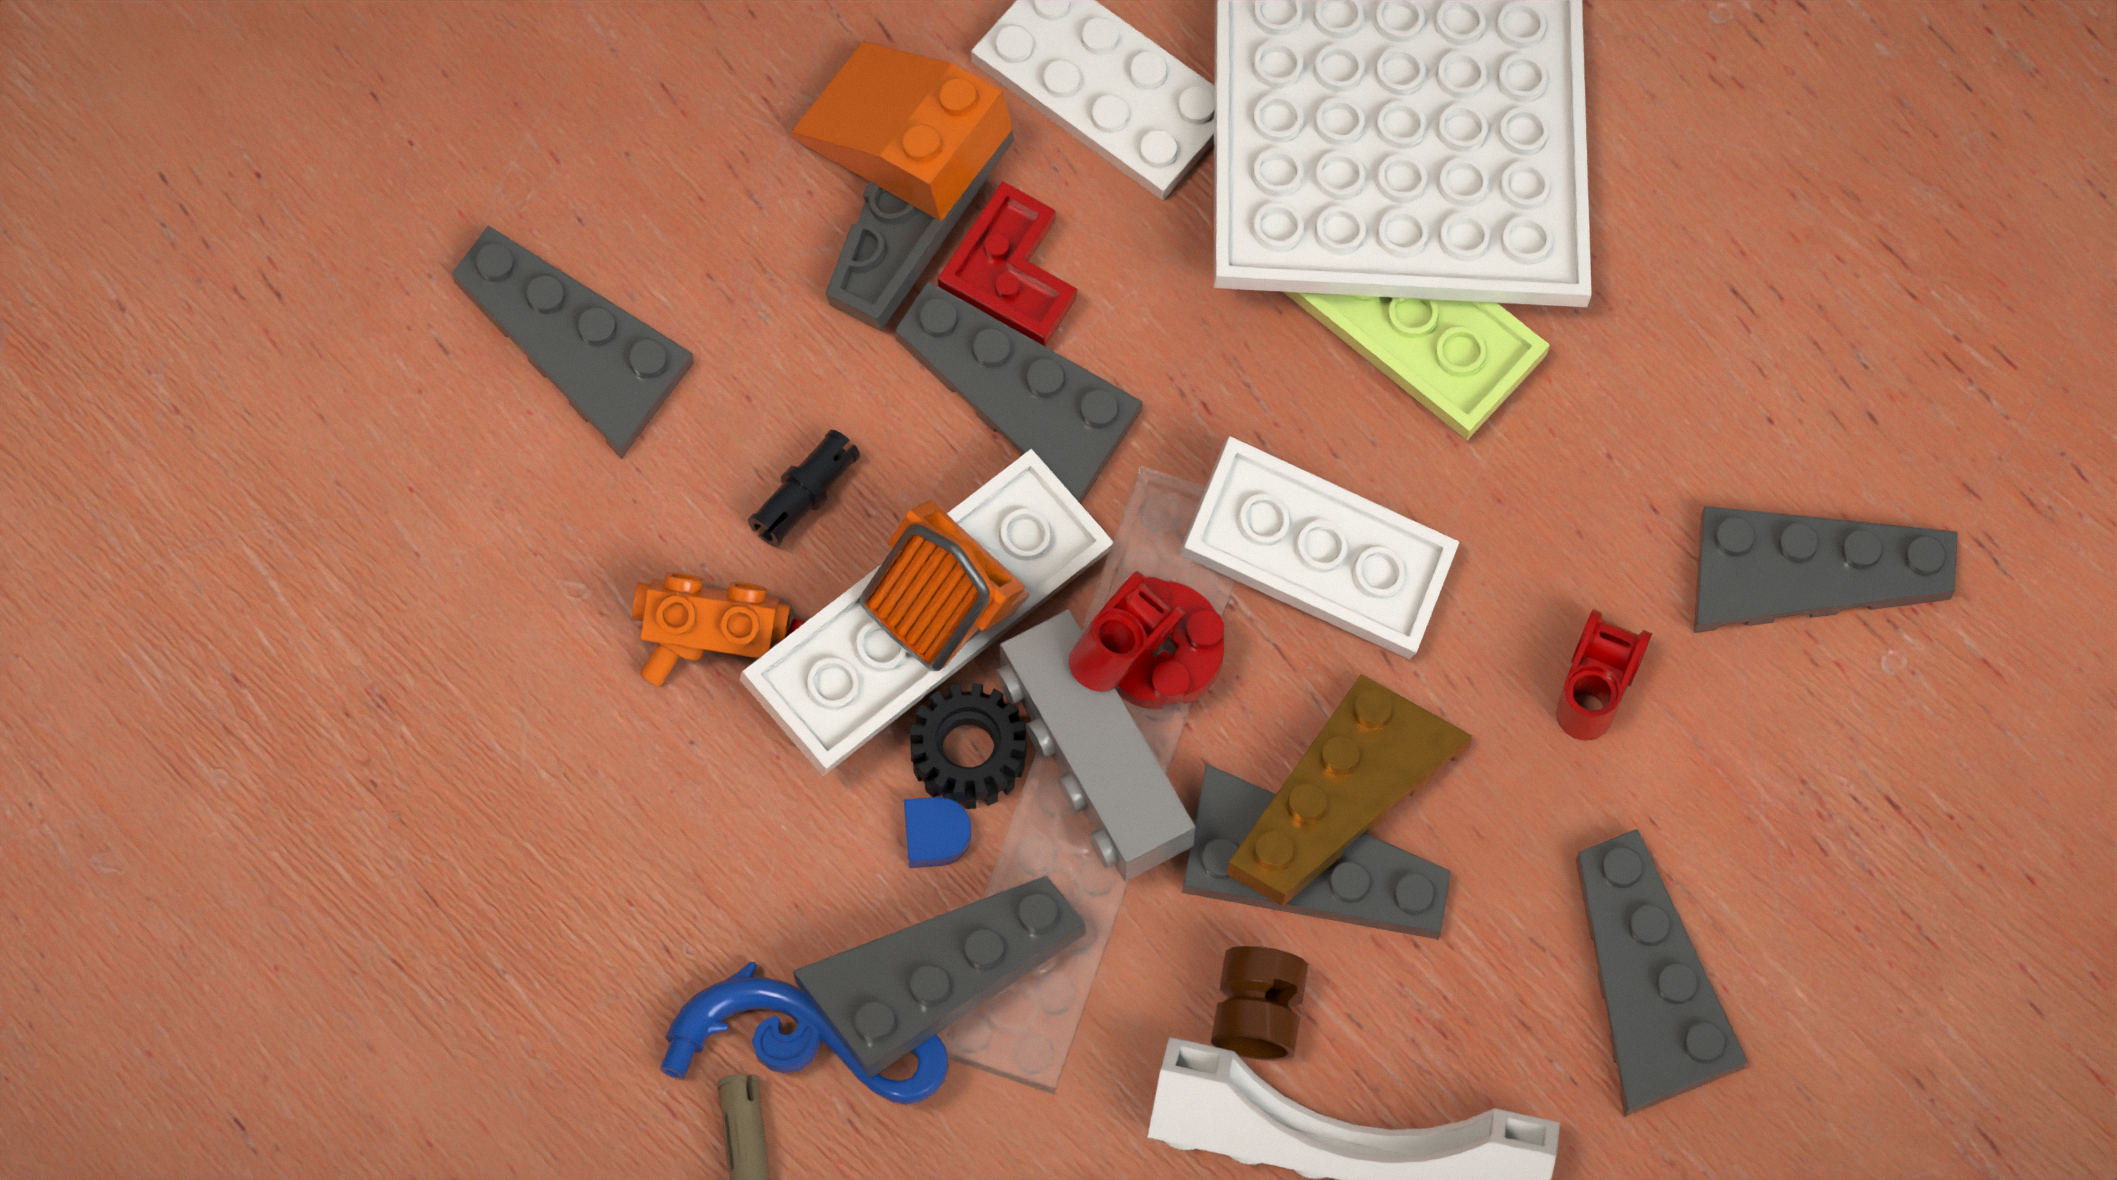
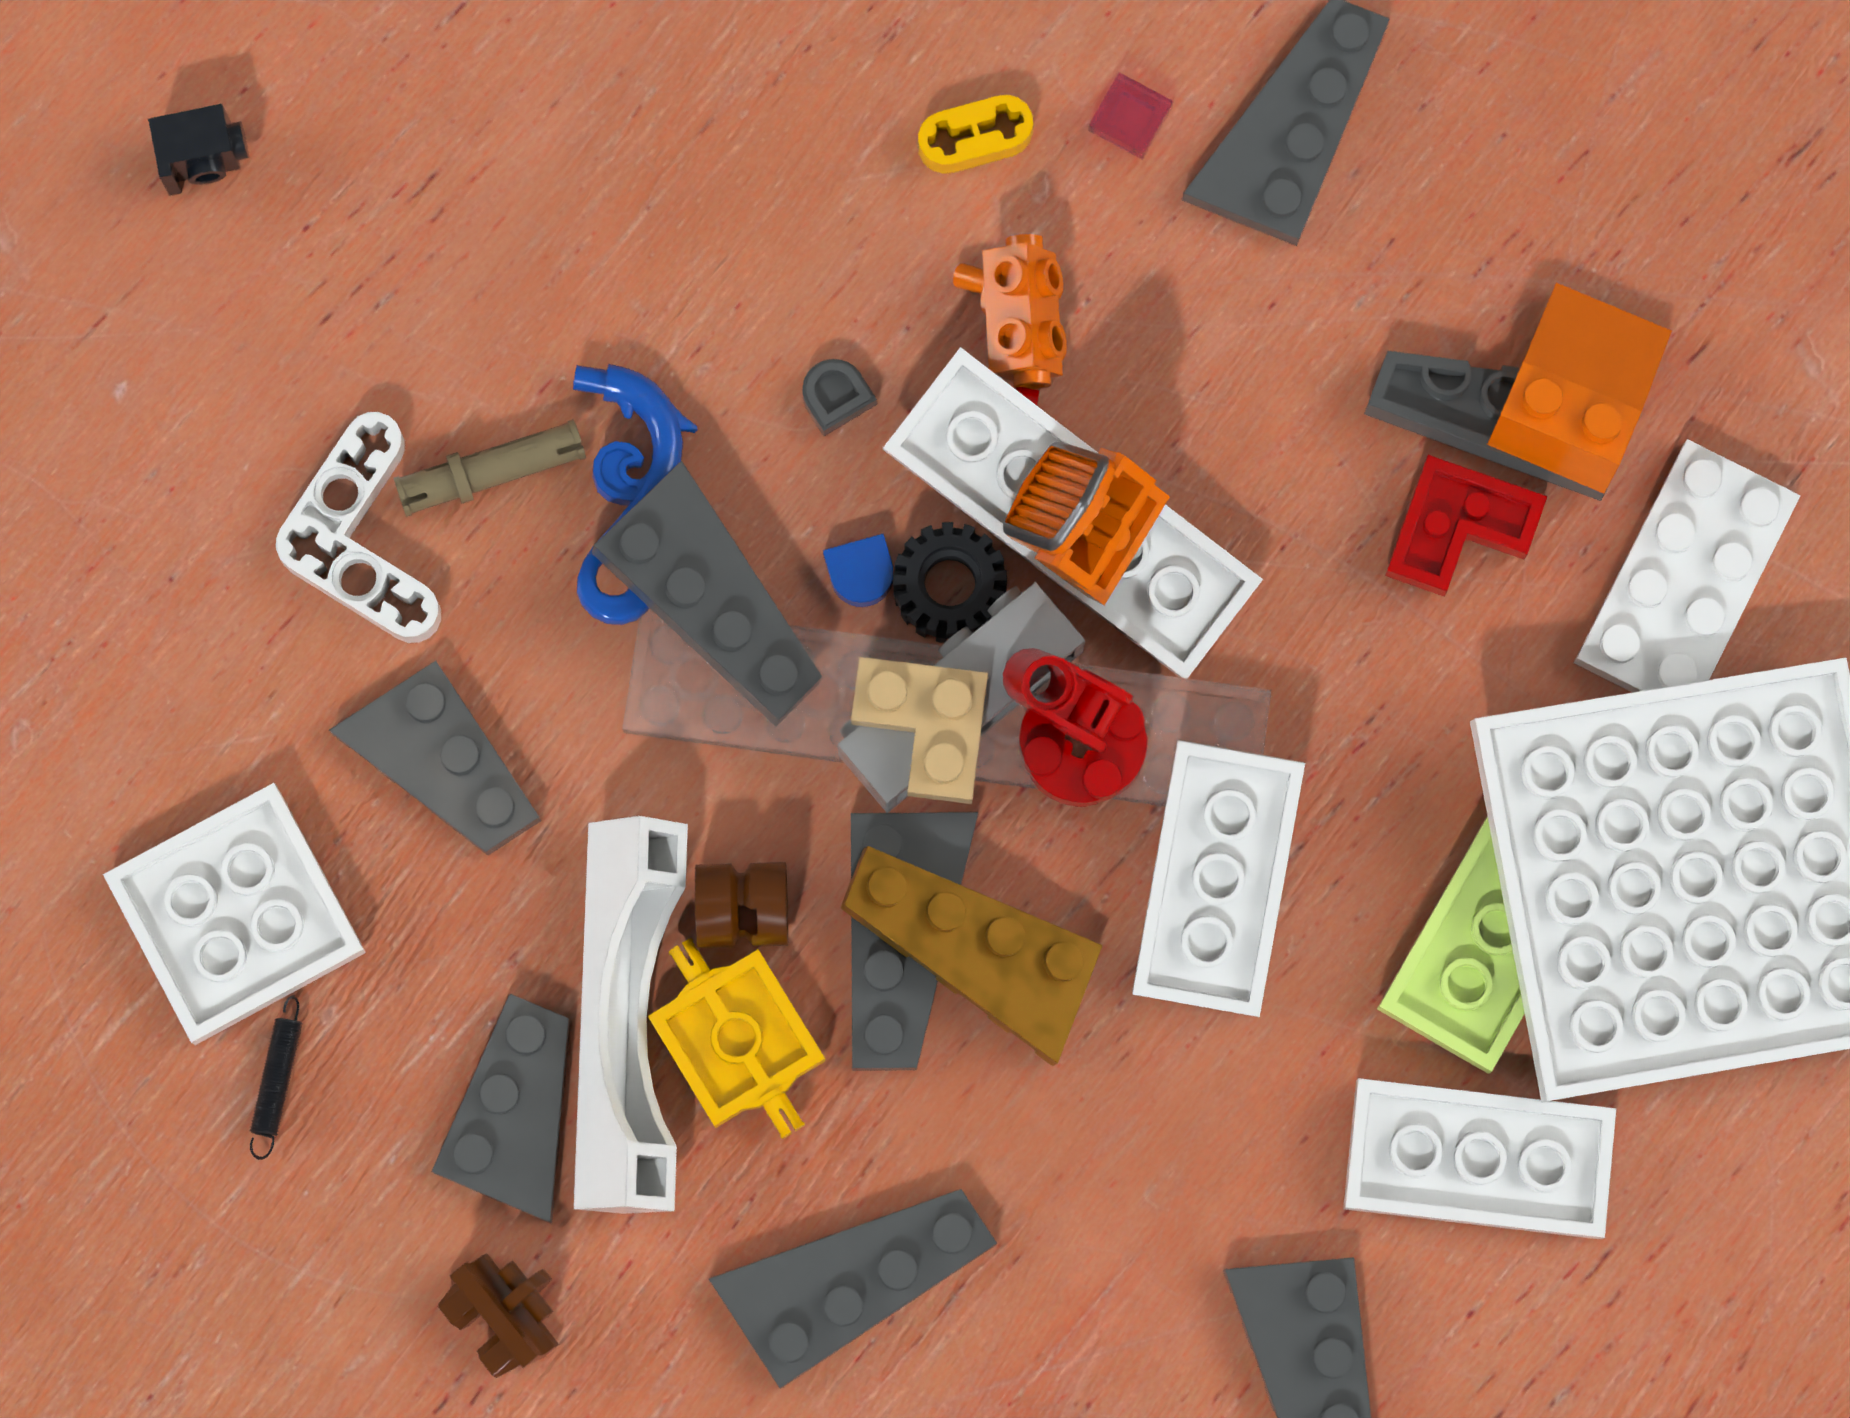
camera: 80 degrees right, 10 degrees up
(522, 633) = (978, 148): none -> yellow beam
(525, 485) = (1130, 116): none -> clear pink tile
(746, 822) = (835, 394): none -> dark grey tile
(803, 488) = (1181, 374): black pin -> none
(1020, 387) = (1328, 573): dark grey wing -> none
(1118, 752) = (940, 708): none -> tan plate
(1391, 1038) = (736, 1038): none -> yellow plate
(1601, 667) = (1155, 1181): red piece -> none
(1628, 377) = (1480, 1159): none -> white plate

